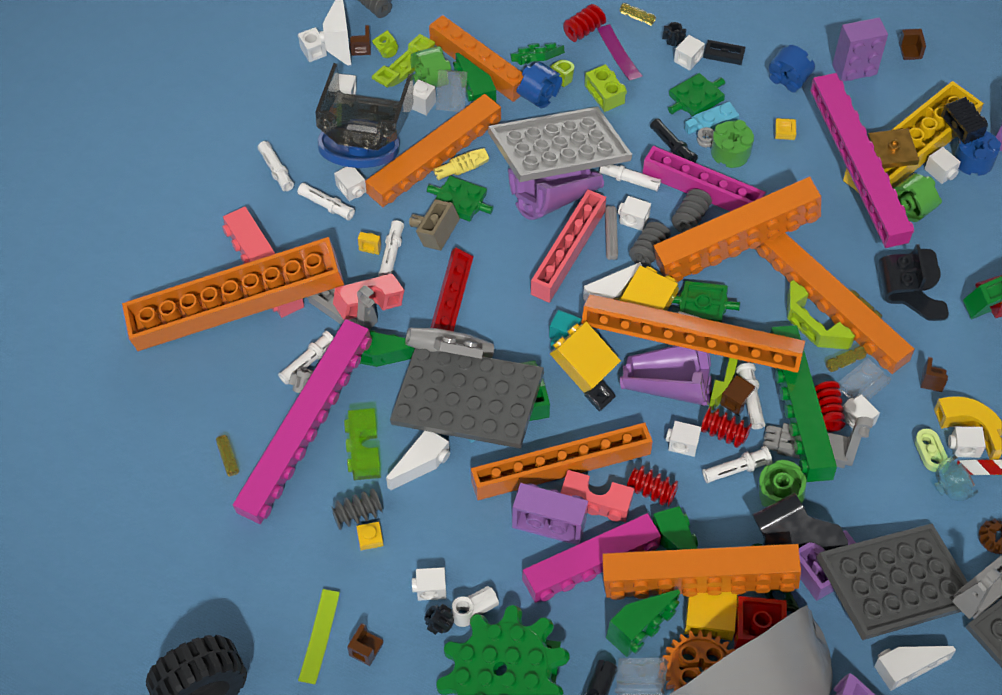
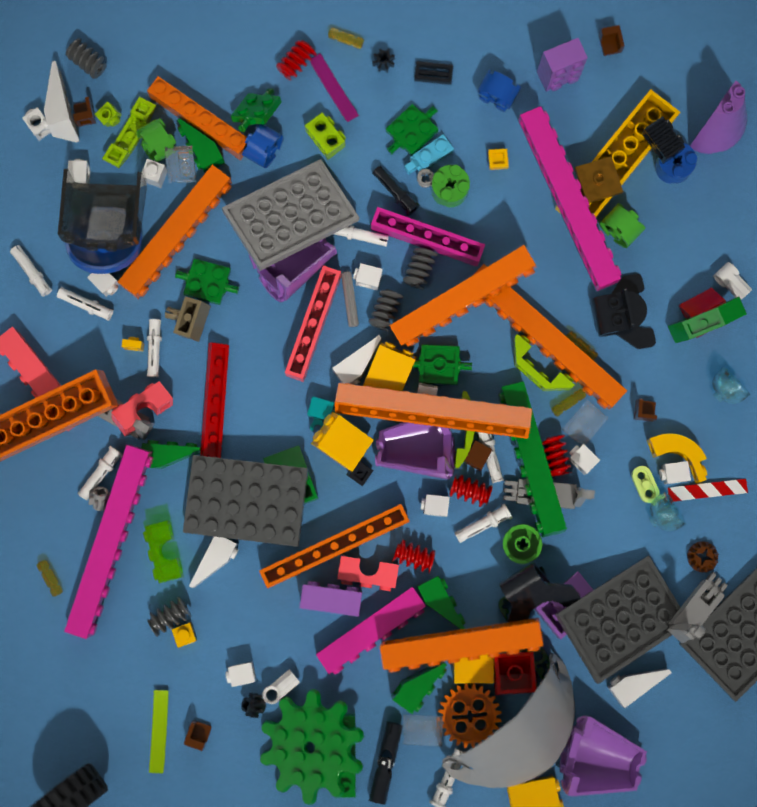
camera: 10 degrees left, 25 degrees up
(448, 341) = (224, 451): light grey plate -> none
(462, 164) = (203, 243): light yellow hinge -> none
(566, 70) = (283, 124): lime plate -> none
(689, 52) = (400, 81): white brick -> none
(942, 165) = (645, 182): white brick -> none

